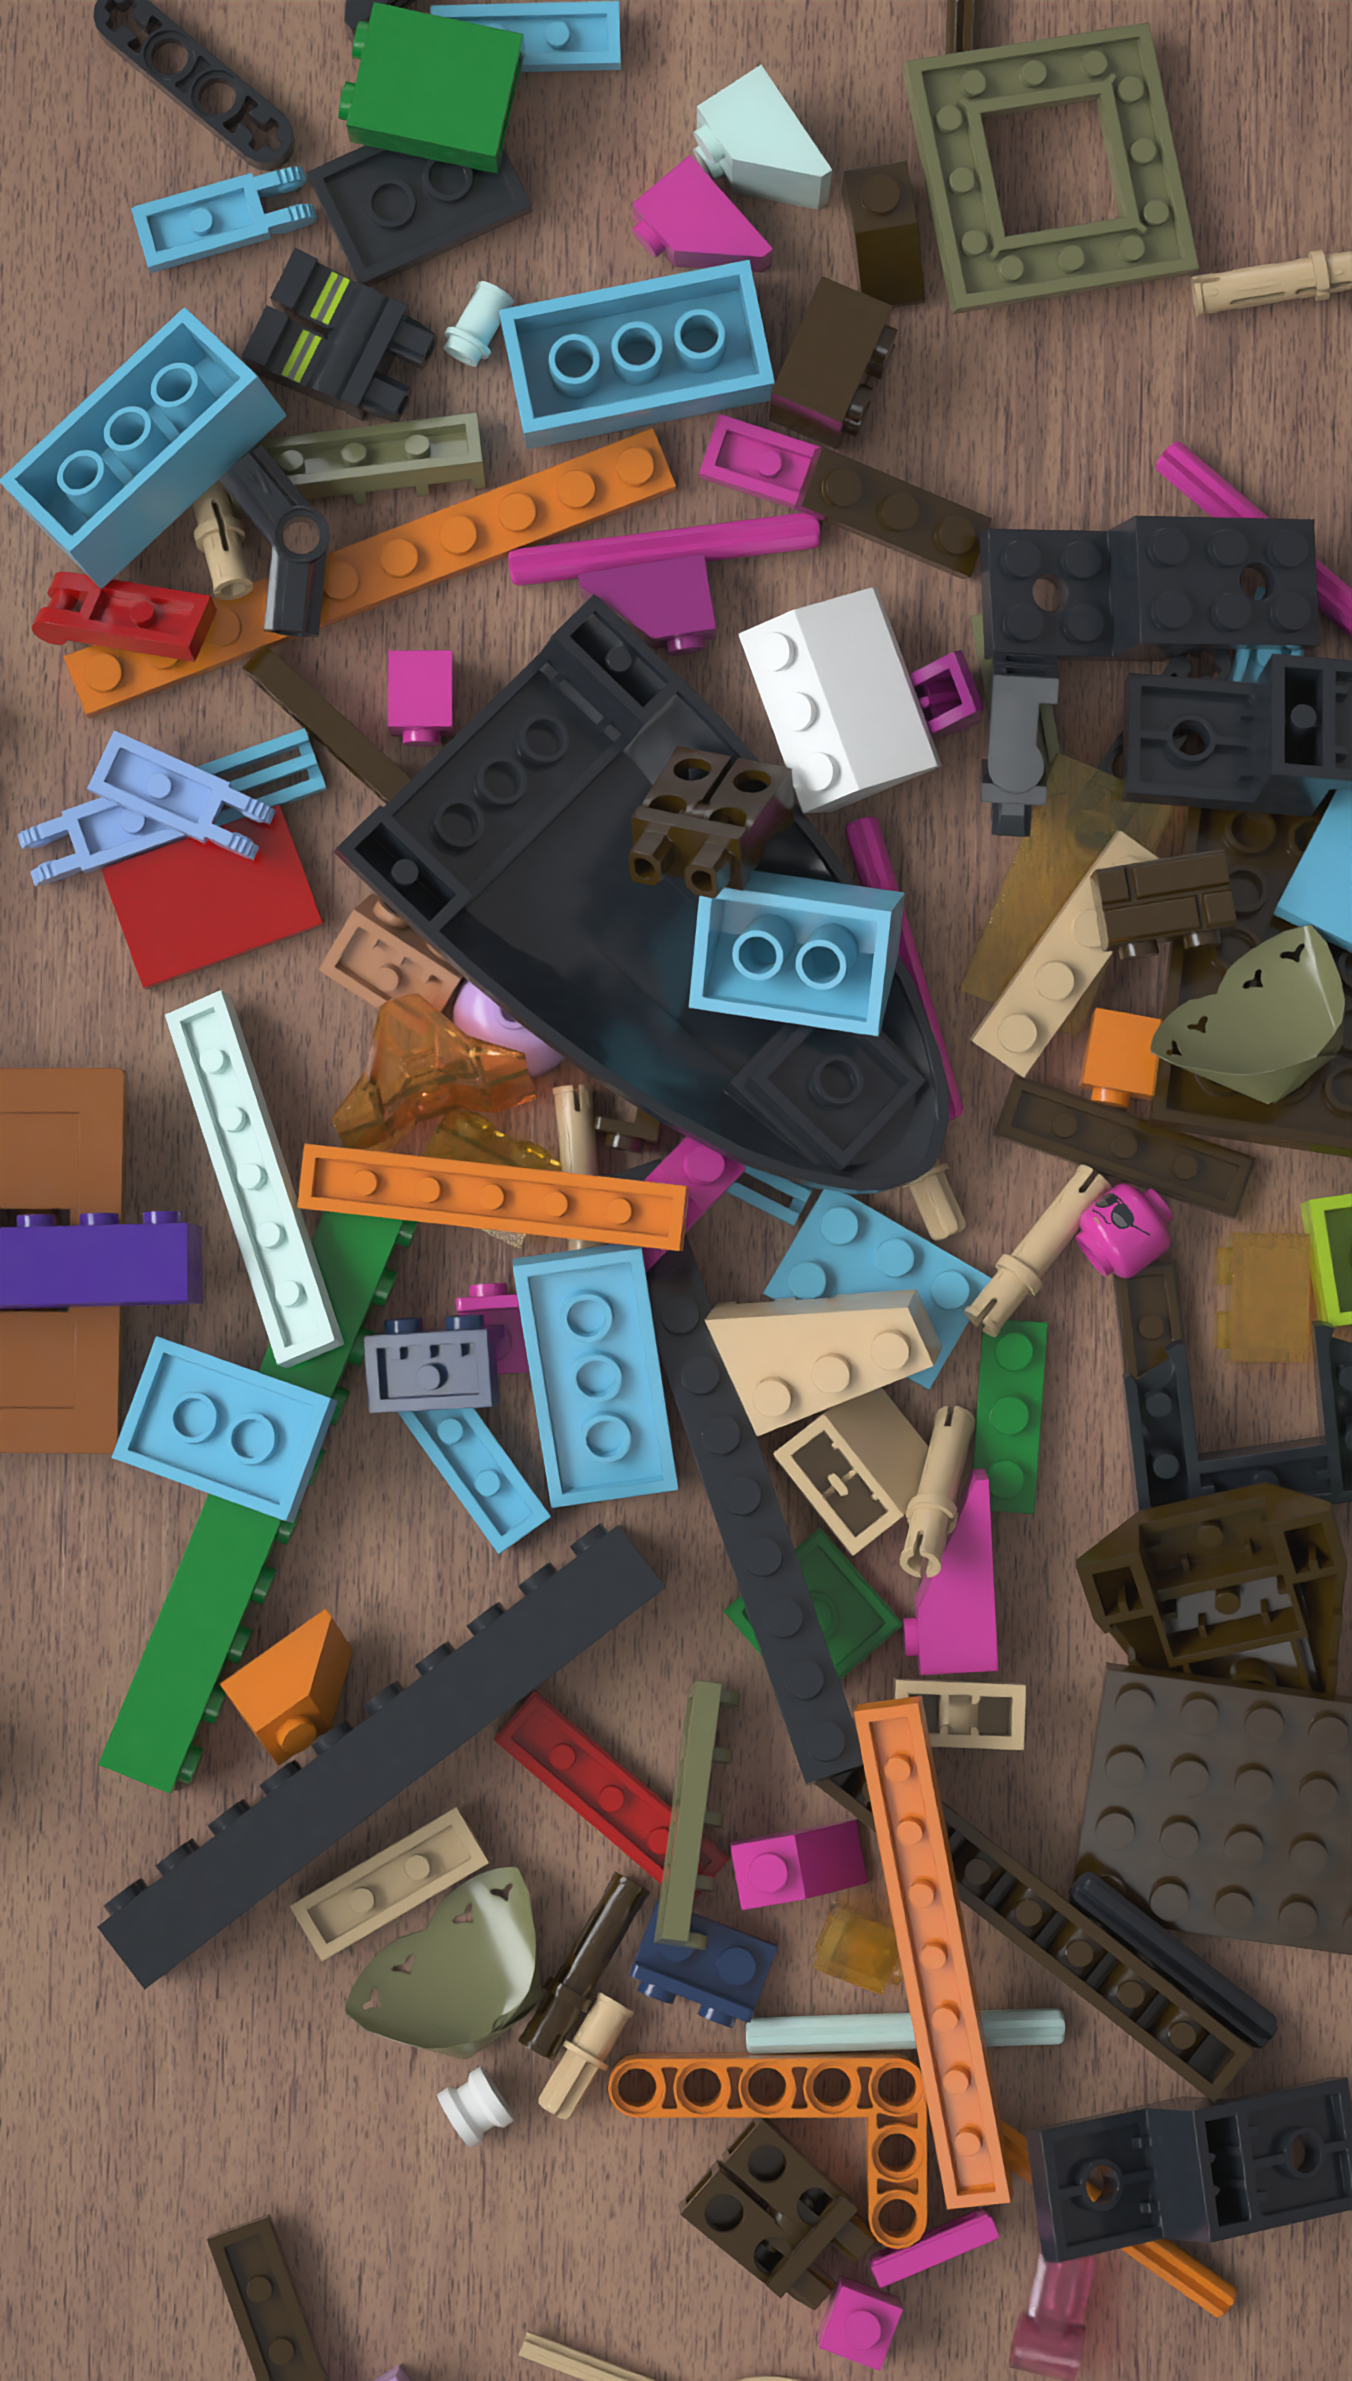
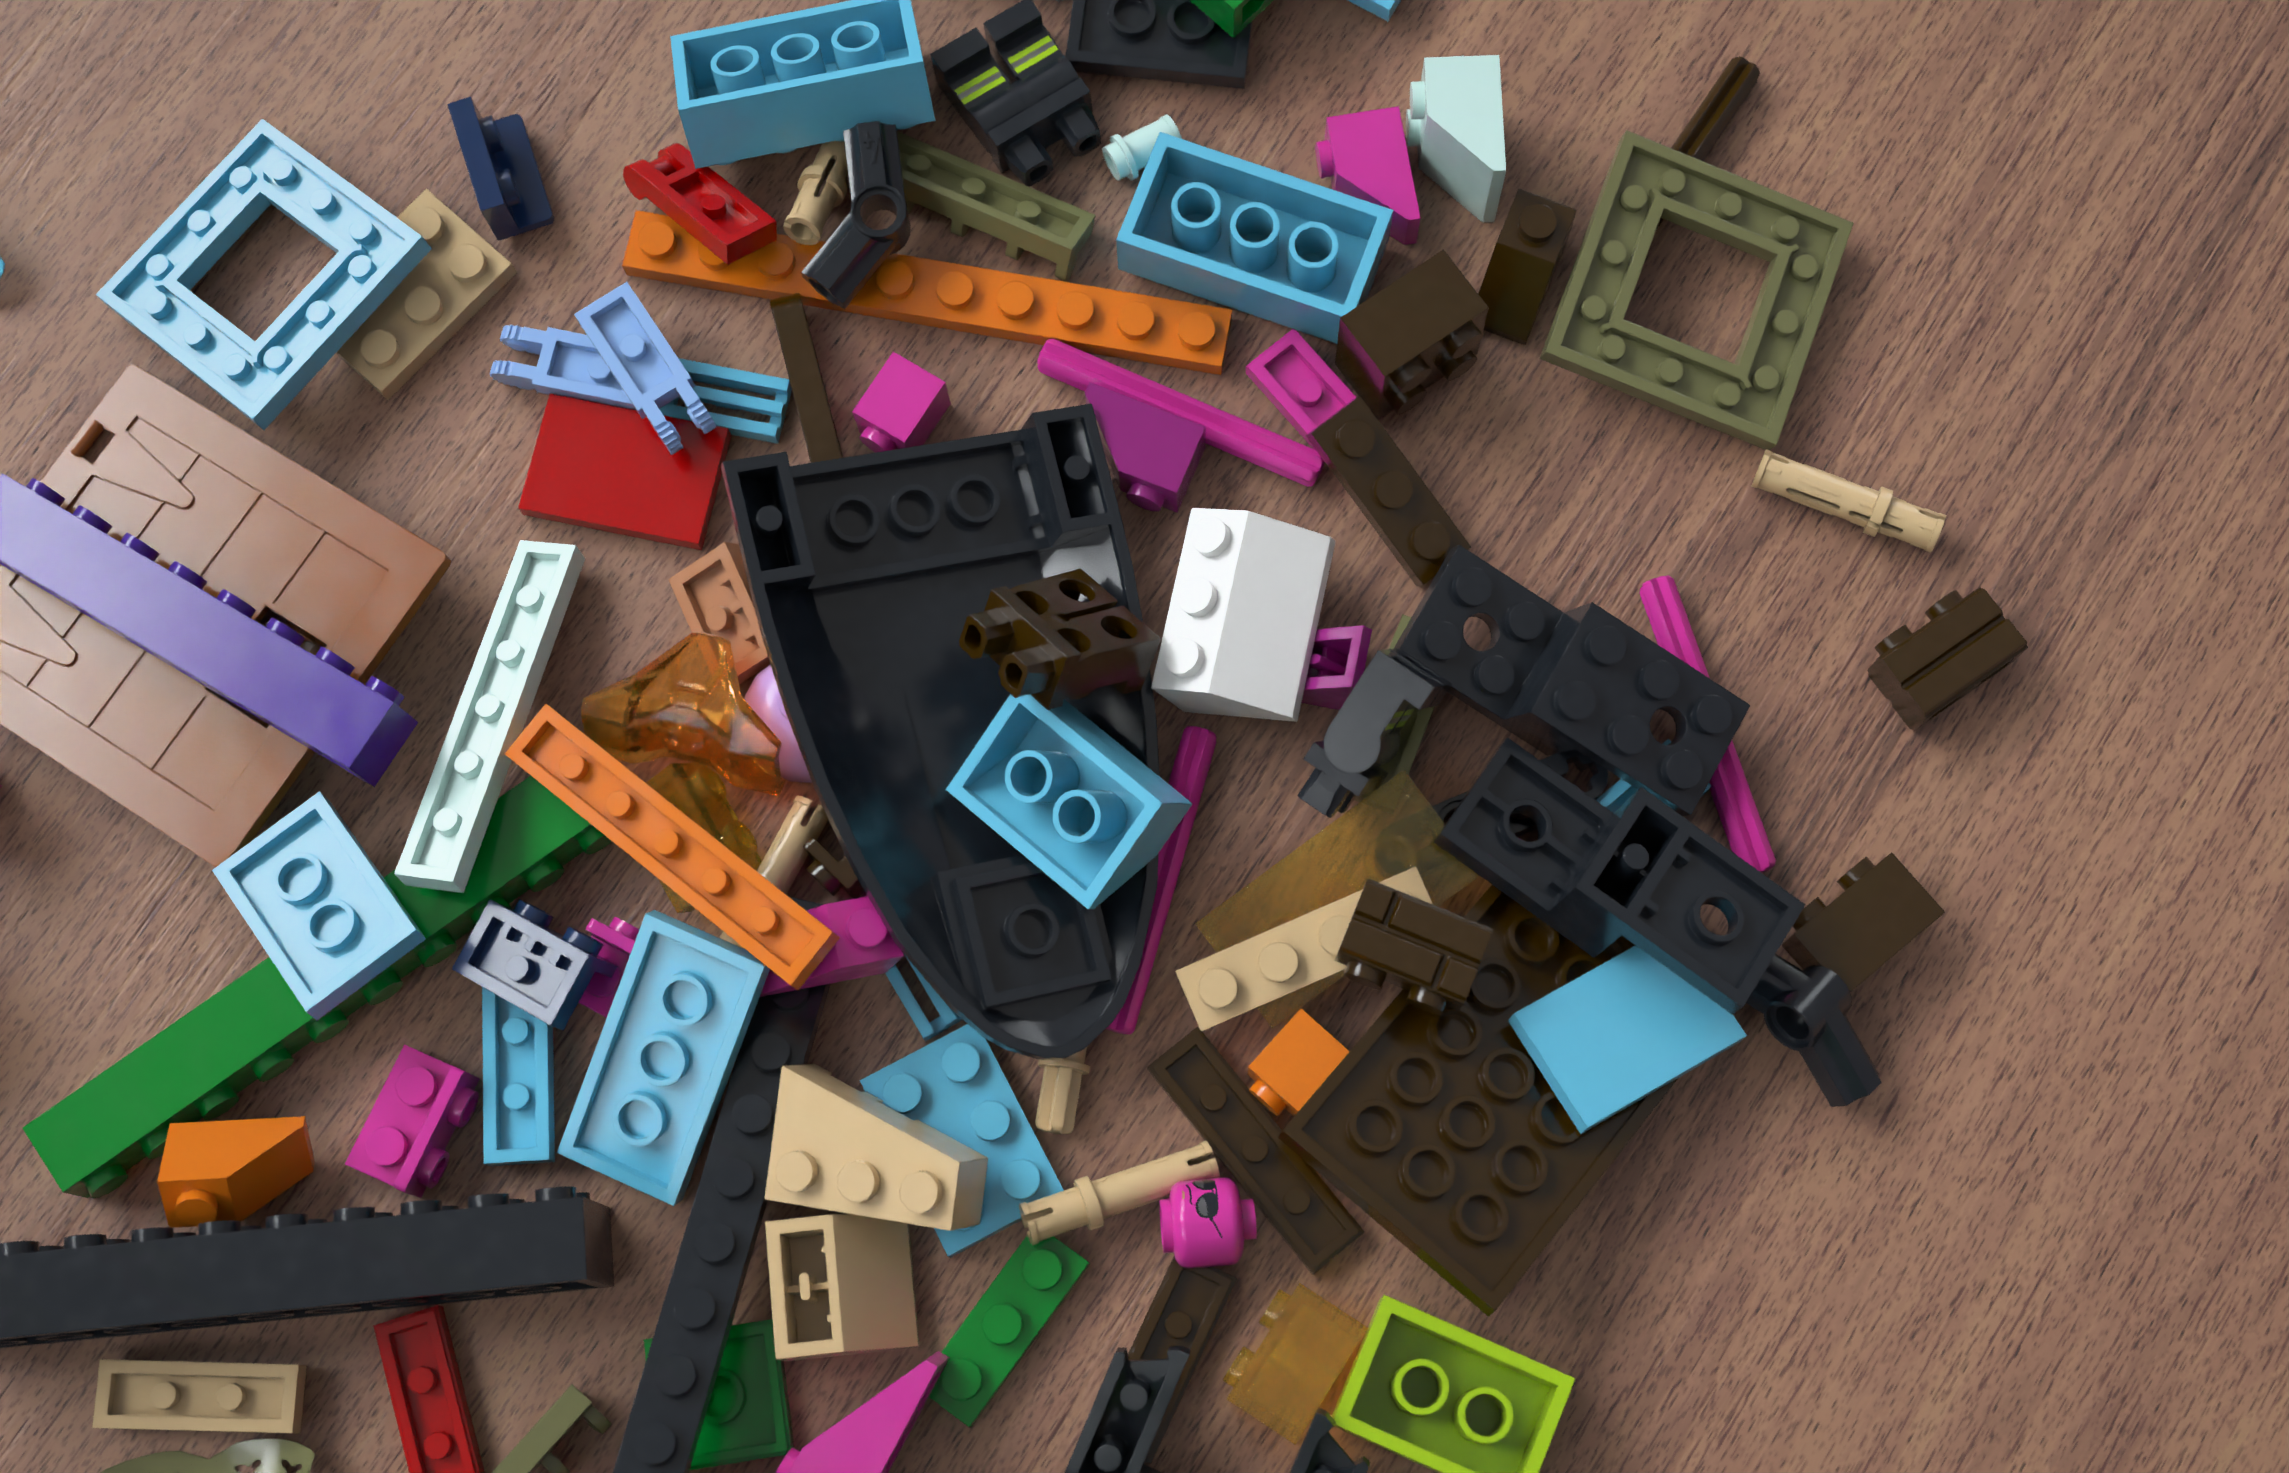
camera: 35 degrees right, 10 degrees down
(412, 1557) = (414, 1122): none -> dark pink bracket
(933, 1509) = (874, 1360): tan pin -> none
(1265, 1036) = (1425, 1118): olive piece -> none

